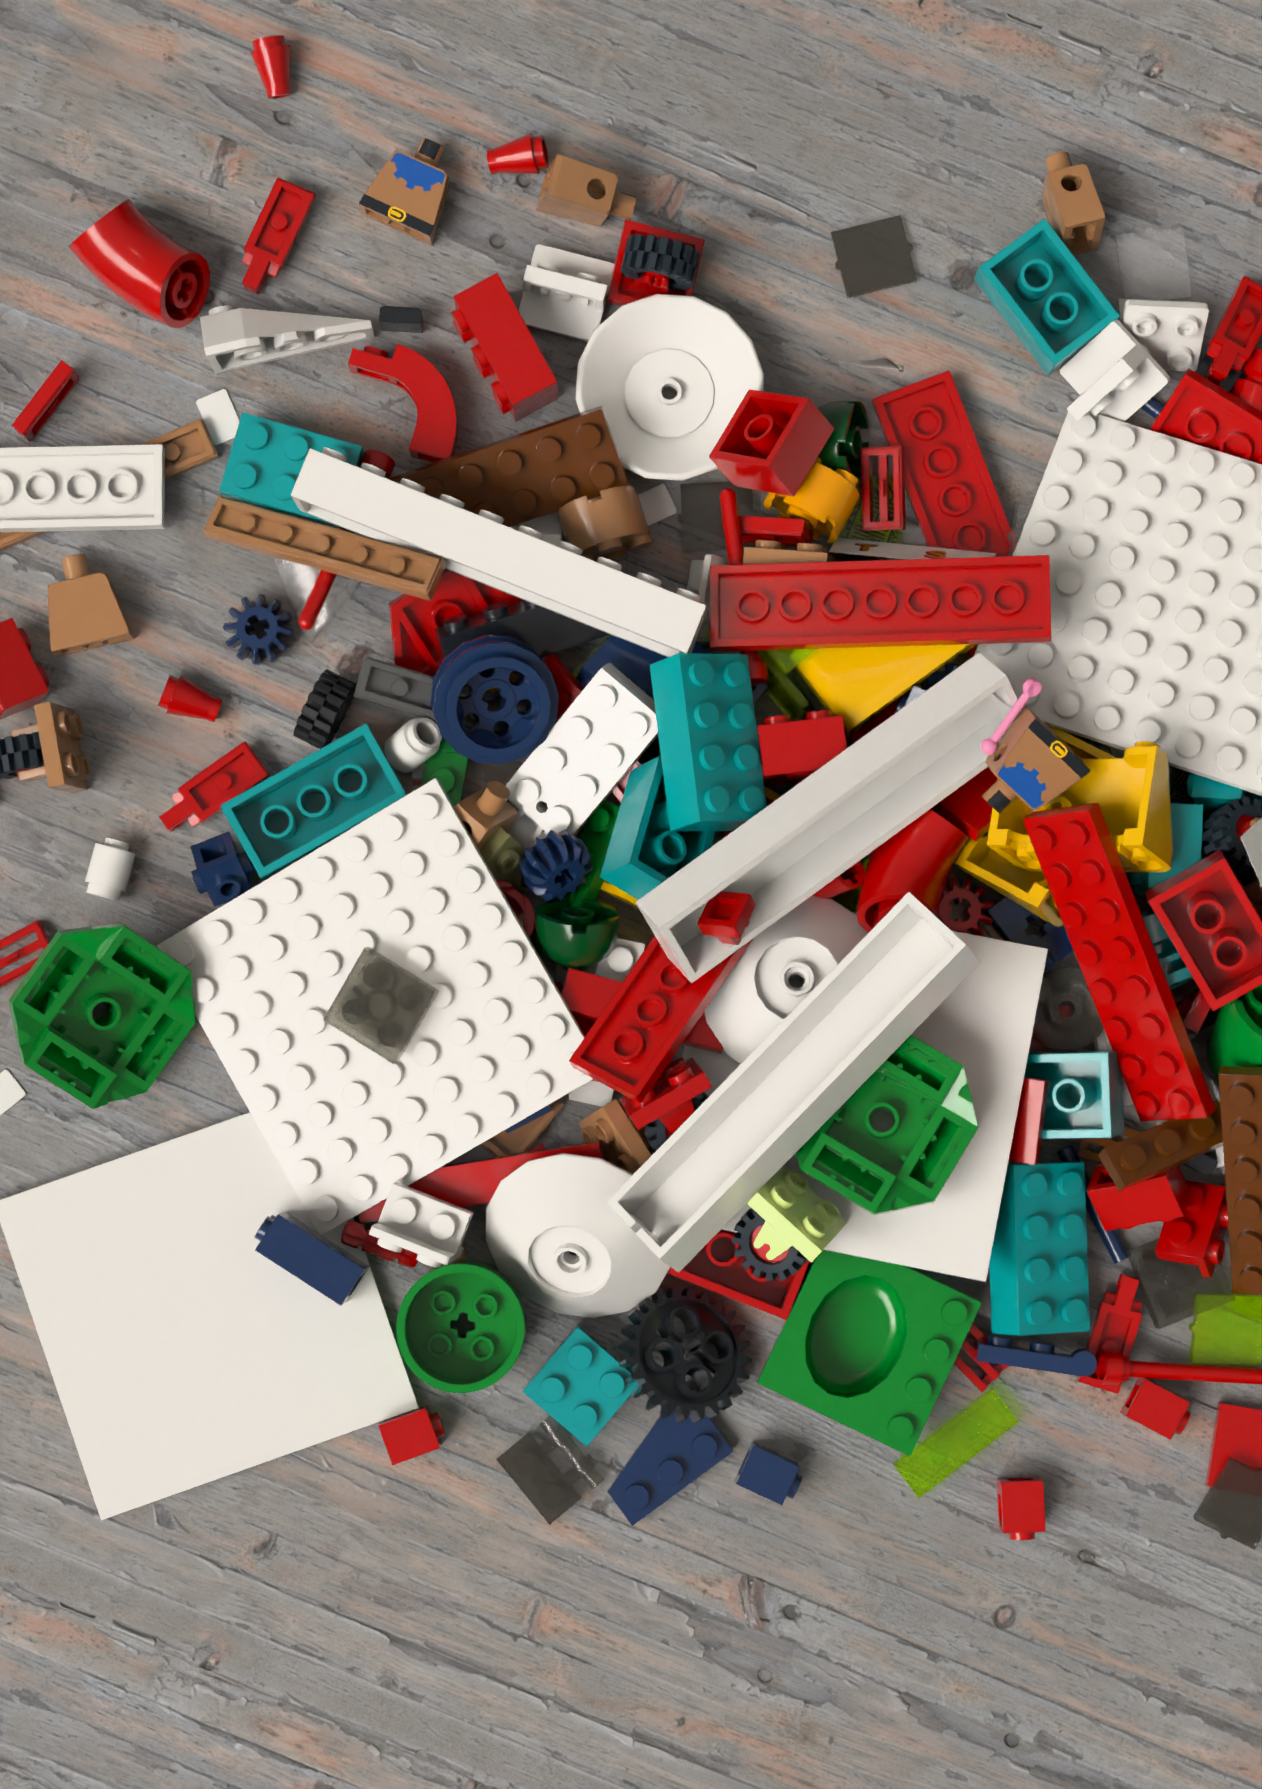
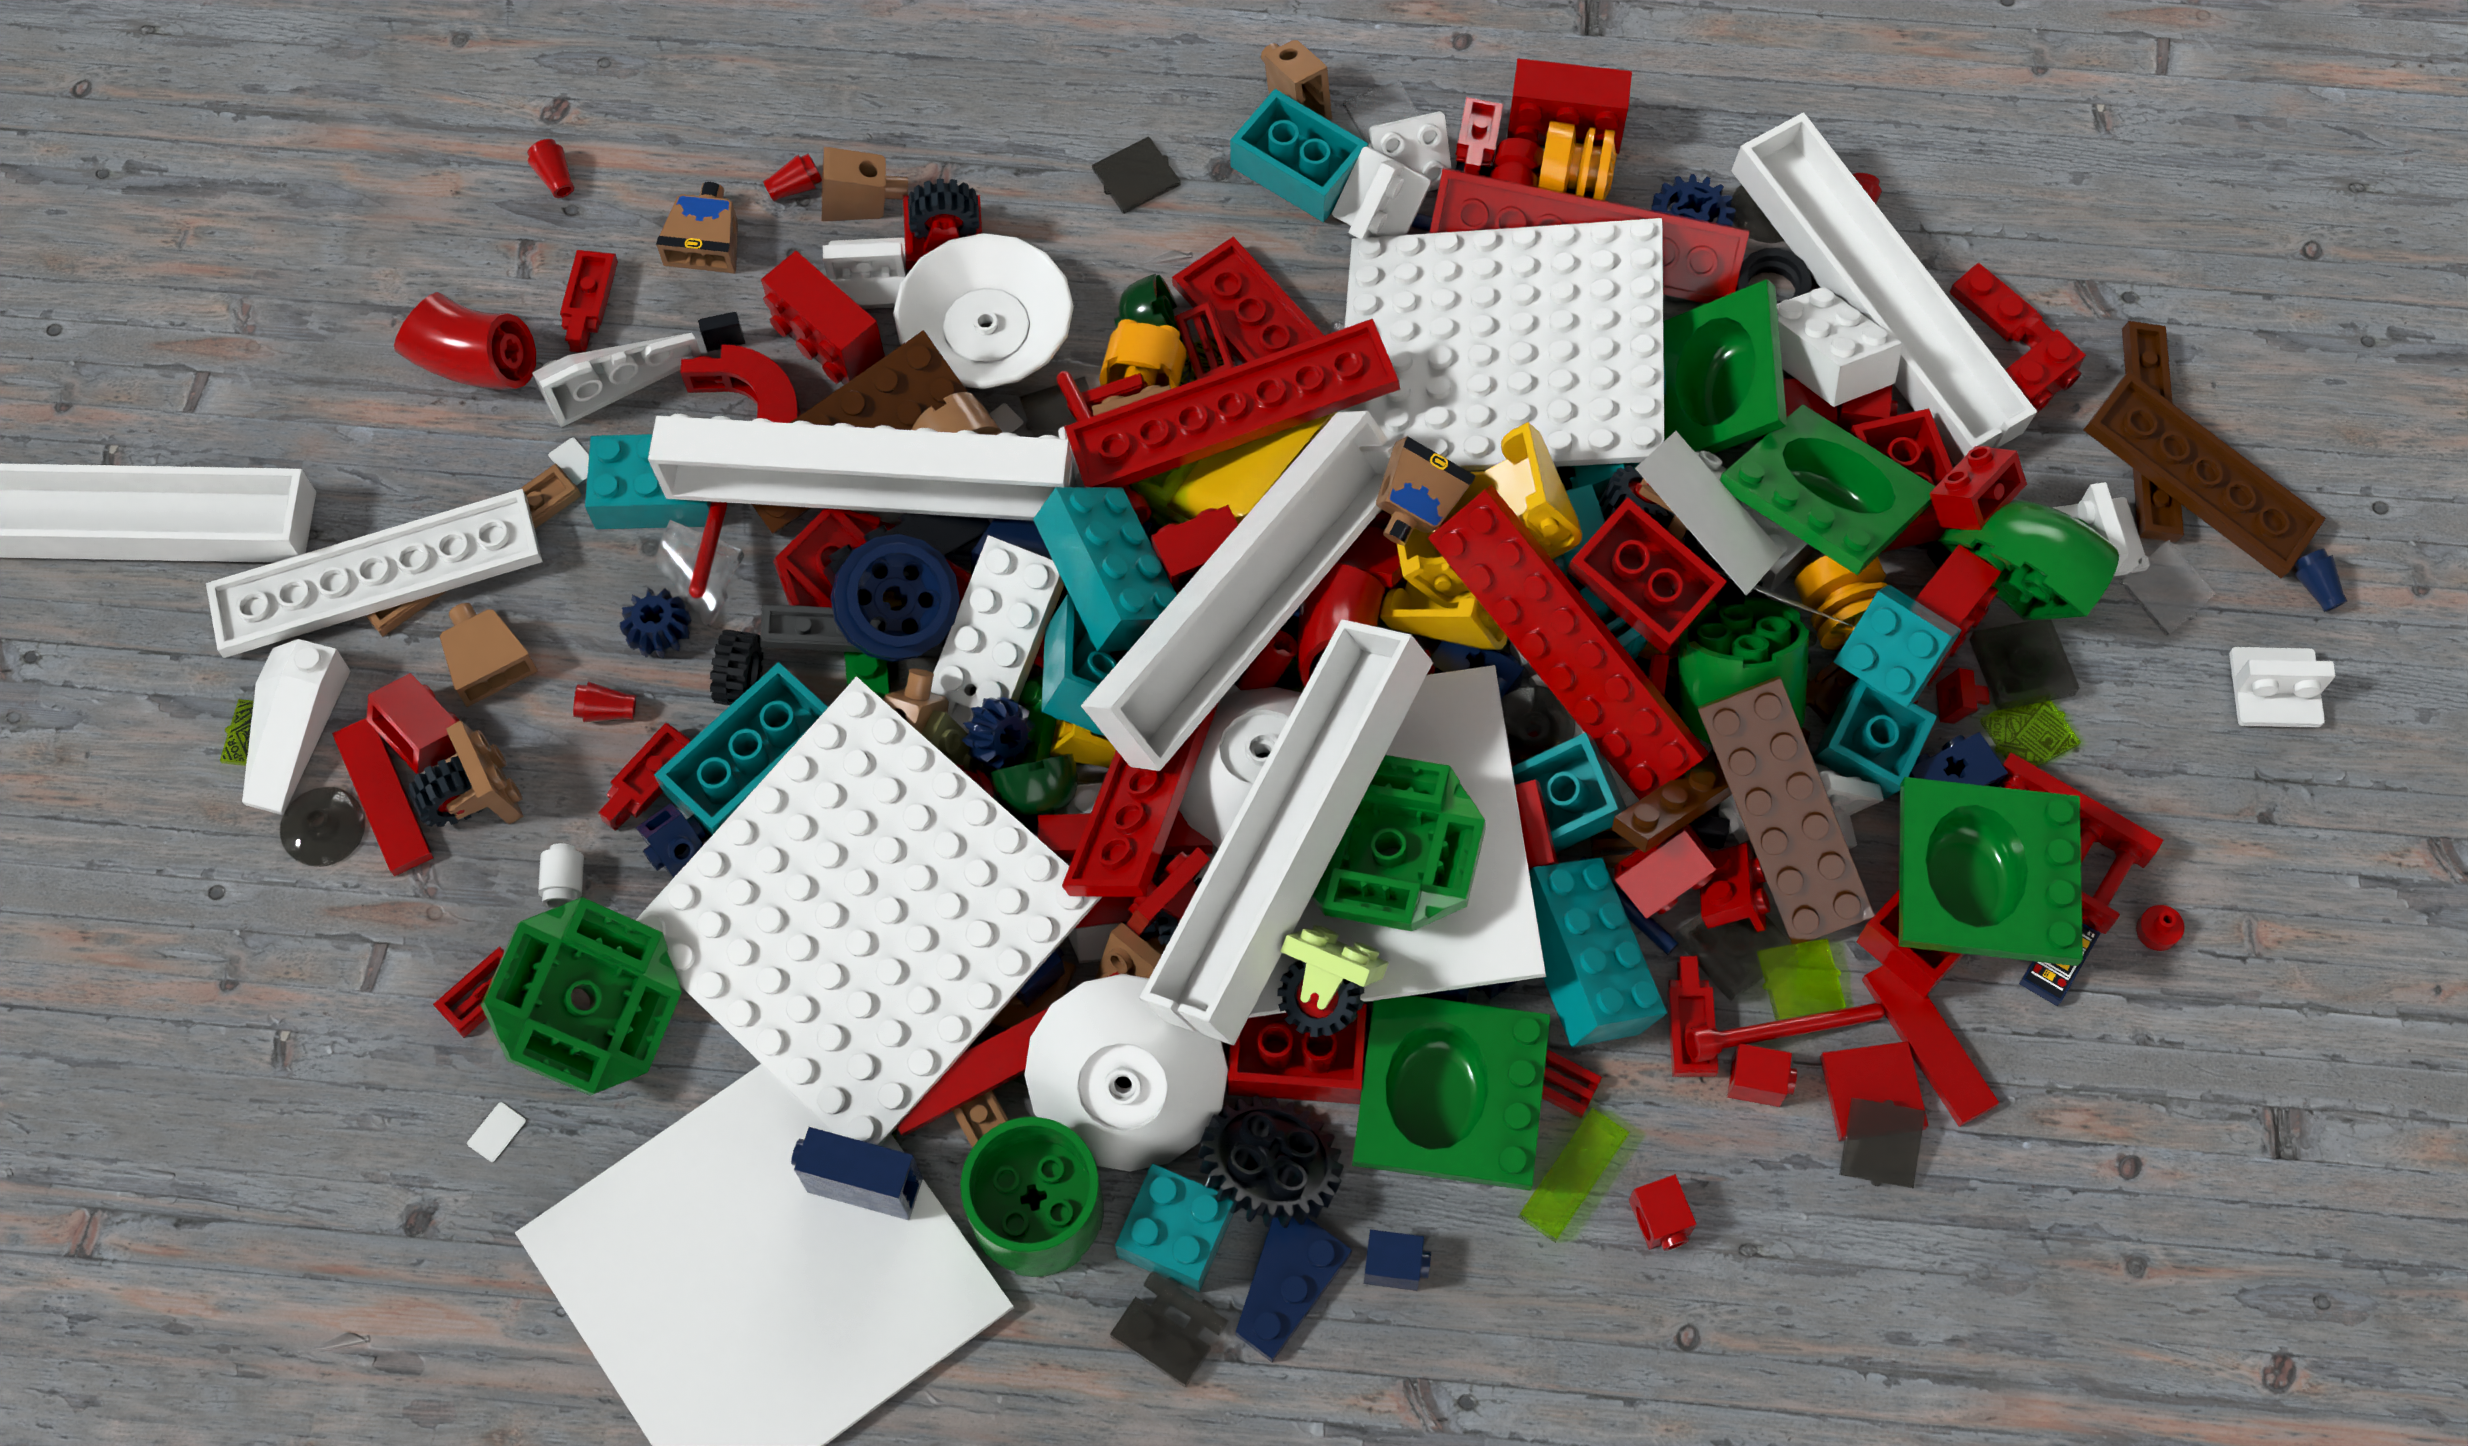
camera: 10 degrees left, 20 degrees down
(46, 401) = (403, 486): red tile -> none
(325, 548) = (698, 524): medium nougat tile -> none
(355, 1235) = (930, 1151): red axle -> none
(381, 1005) = (861, 899): clear smoke plate -> none
(412, 744) = (831, 672): white brick -> none
(412, 1434) = (1014, 1333): red brick -> none
(421, 1226) = (961, 1104): white bracket -> none
(727, 916) = (1175, 697): red tile -> none
(771, 442) = (1089, 316): red brick -> none
(1031, 689) = (1394, 422): bright pink hinge -> none
(1038, 1356) = (1623, 1055): dark blue plate -> none

